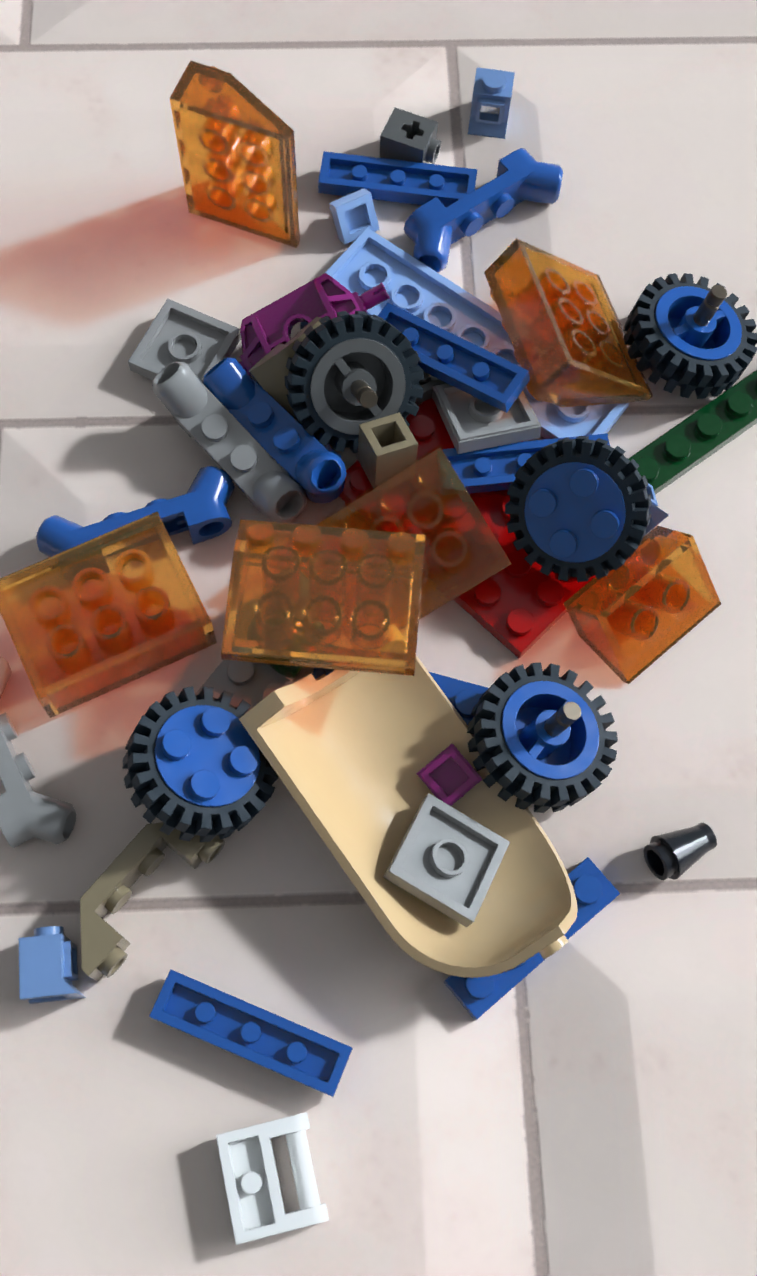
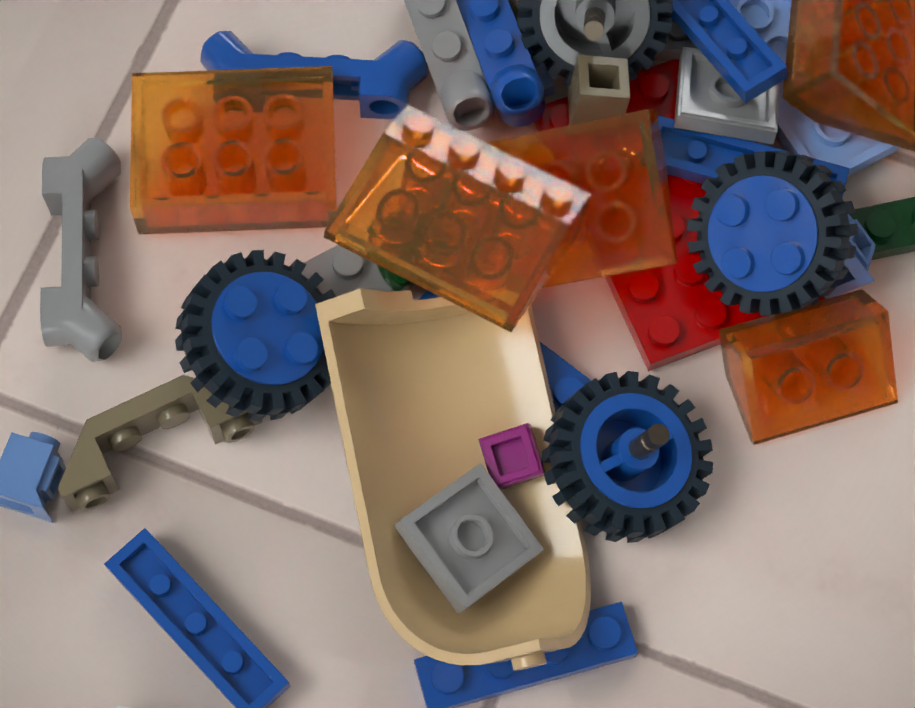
camera: 25 degrees right, 0 degrees up
(677, 851) = (720, 636): black cone -> none

